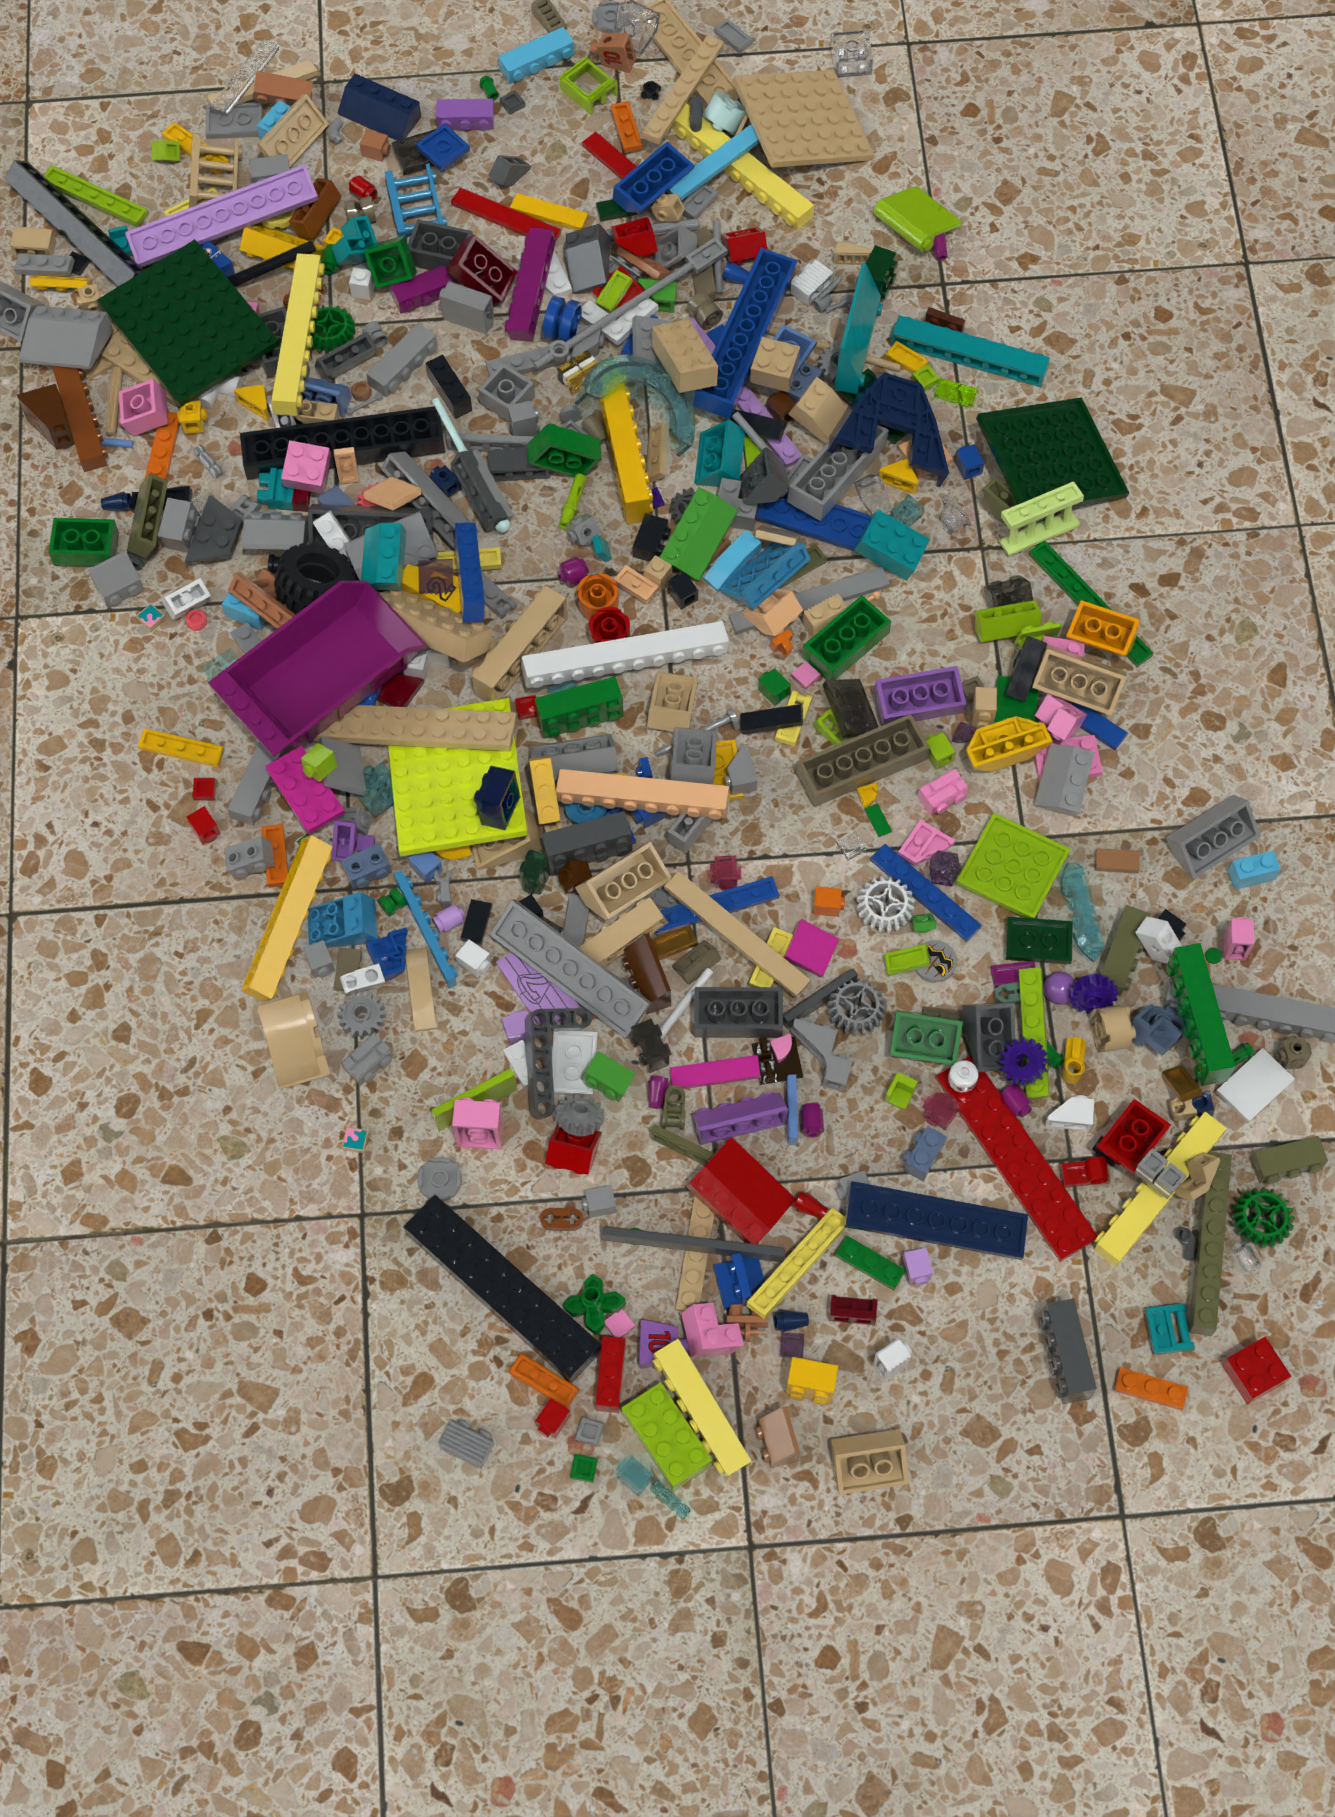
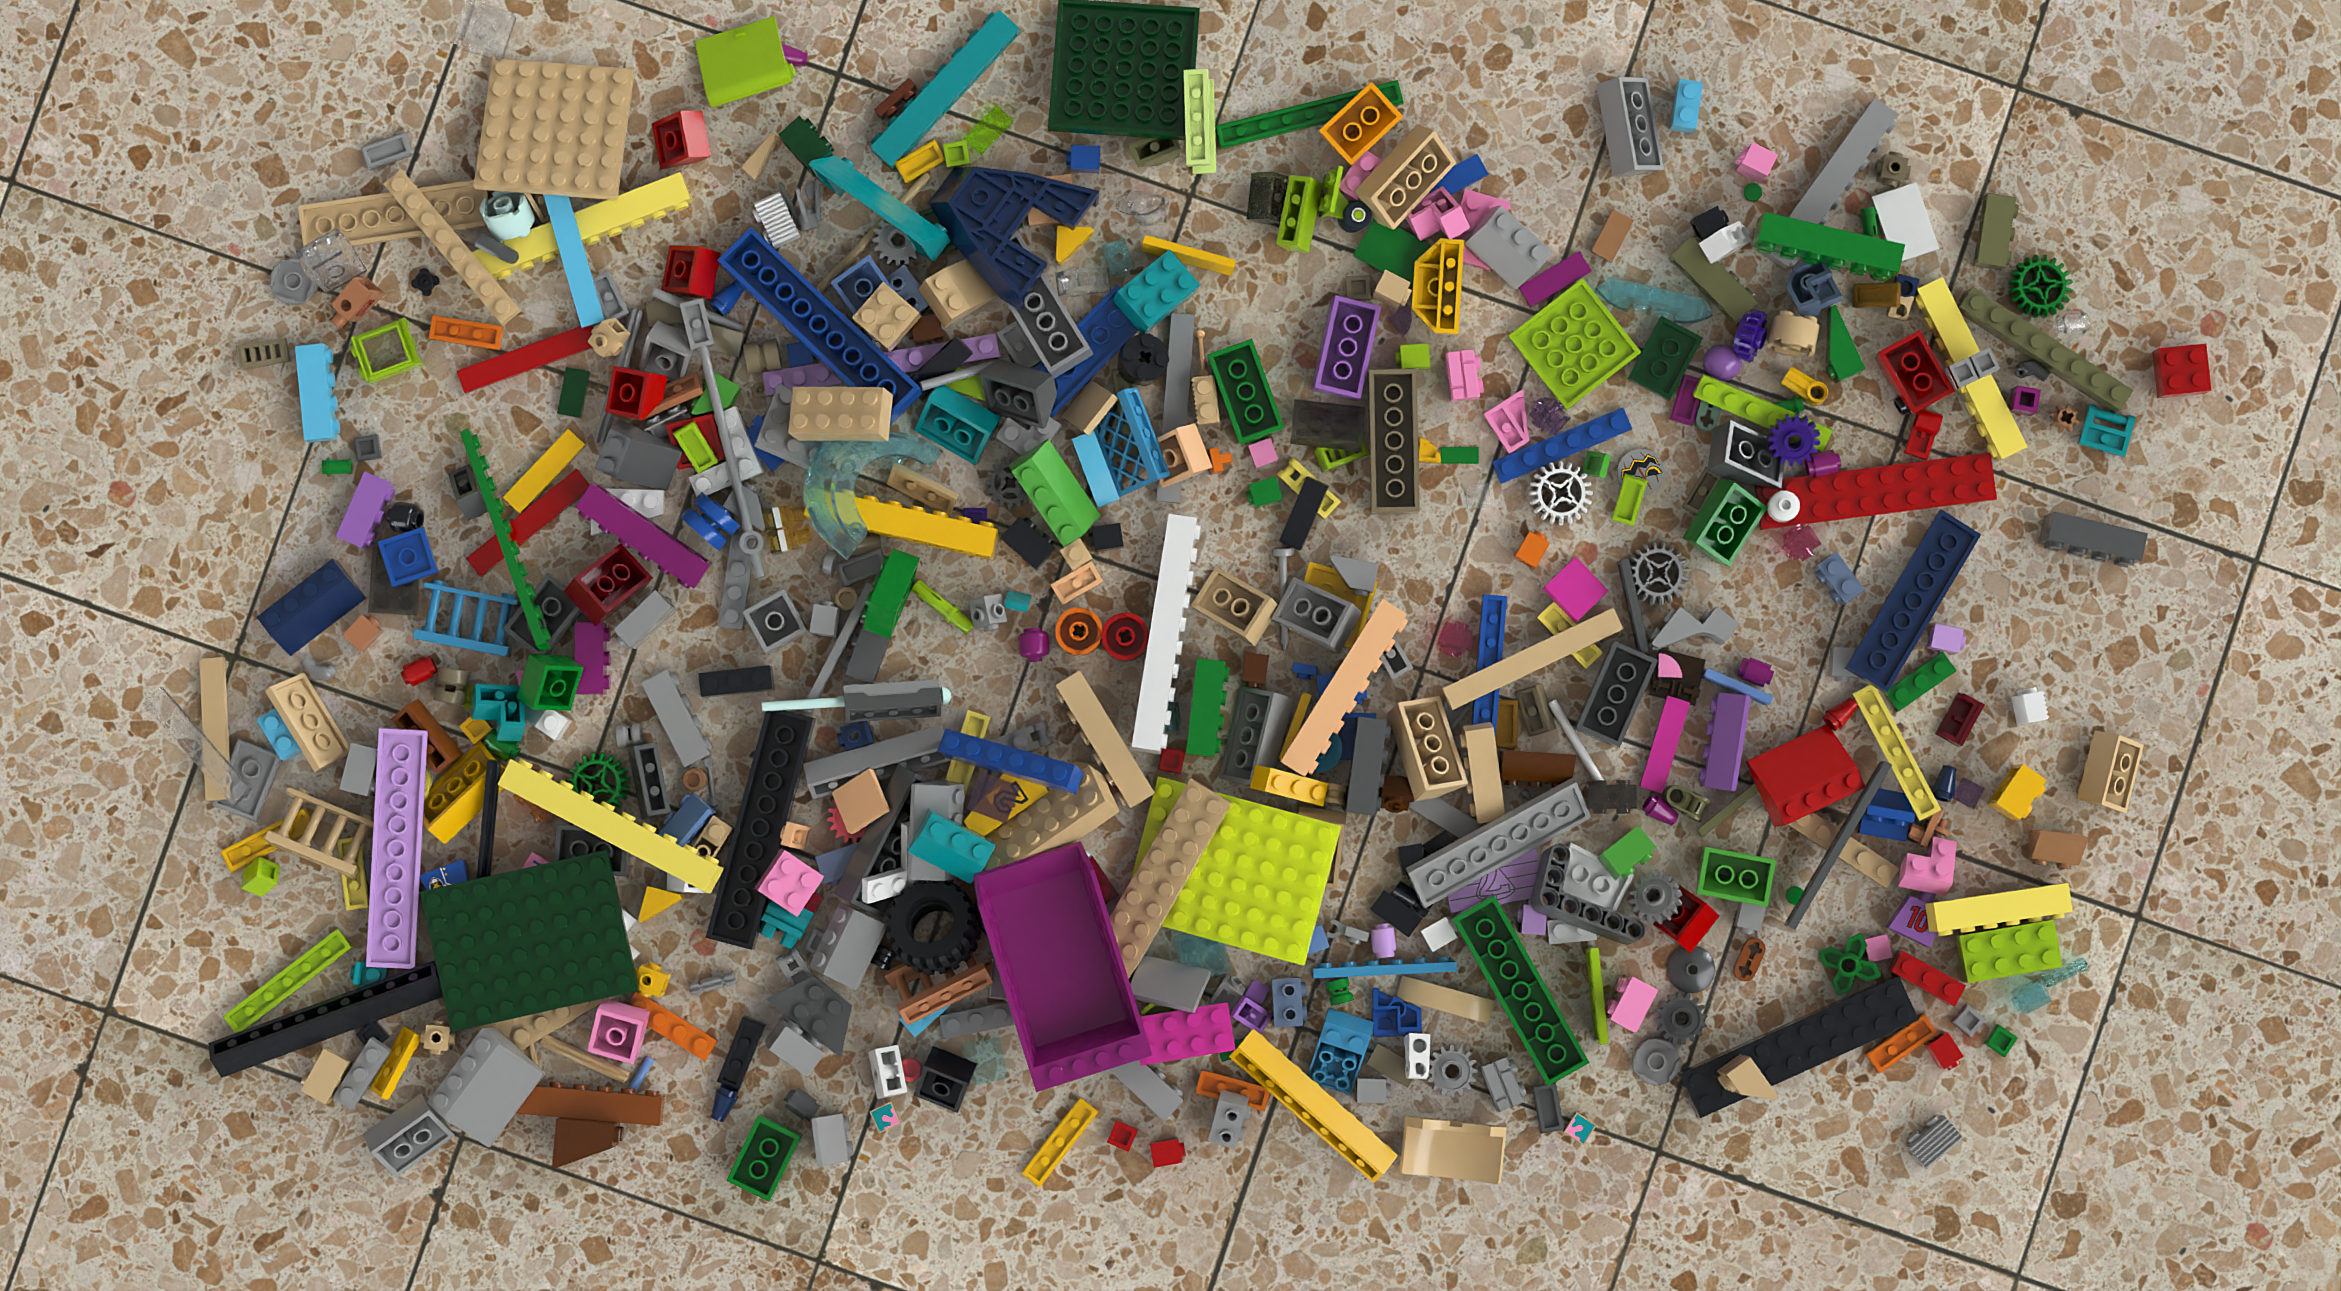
camera: 65 degrees left, 20 degrees up
(147, 515) = (771, 1077): olive brick -> none
(198, 643) = (945, 1079): none -> black slope
(274, 87) = (241, 711): nougat brick -> none
(318, 762) = (1171, 1010): lime brick -> none
(362, 1107) = (1548, 1108): none -> dark grey tile
(452, 1036) = (1520, 989): none -> green brick
(452, 1233) = (1745, 1078): none -> tan slope
(473, 137) = (405, 517): none -> black head
(481, 197) = (509, 548): none -> green plate
(482, 1170) = (1693, 1021): none -> dark grey gear
(494, 917) = (1409, 897): none -> black bar
(497, 797) = (1299, 843): clear blue brick -> none
(532, 1186) = (1679, 974): none -> dark grey dish
(534, 872) = (1376, 835): clear green brick -> none
(628, 735) = (1254, 669): none -> reddish brown brick
(628, 1171) = (1735, 876): none -> bright green slope
(651, 179) = (569, 338): blue slope -> none
(834, 557) = (1146, 347): none -> black brick
(840, 202) = (681, 139): none -> red slope
(901, 1091) = (1763, 571): lime panel -> none
(934, 561) = (1189, 255): none -> yellow tile
(1025, 668) = (1368, 225): black tile -> none
(1058, 831) = (1555, 279): none -> magenta tile
(1073, 1114) = (1859, 415): white slope -> none
(1118, 1075) = (1841, 352): none -> green slope
(1151, 1388) = (2153, 476): orange plate -> none
(1157, 1242) = (2024, 400): none -> magenta brick
(1160, 1279) = (2066, 424): none -> medium nougat gear
(1202, 1171) = (1979, 324): tan slope -> none

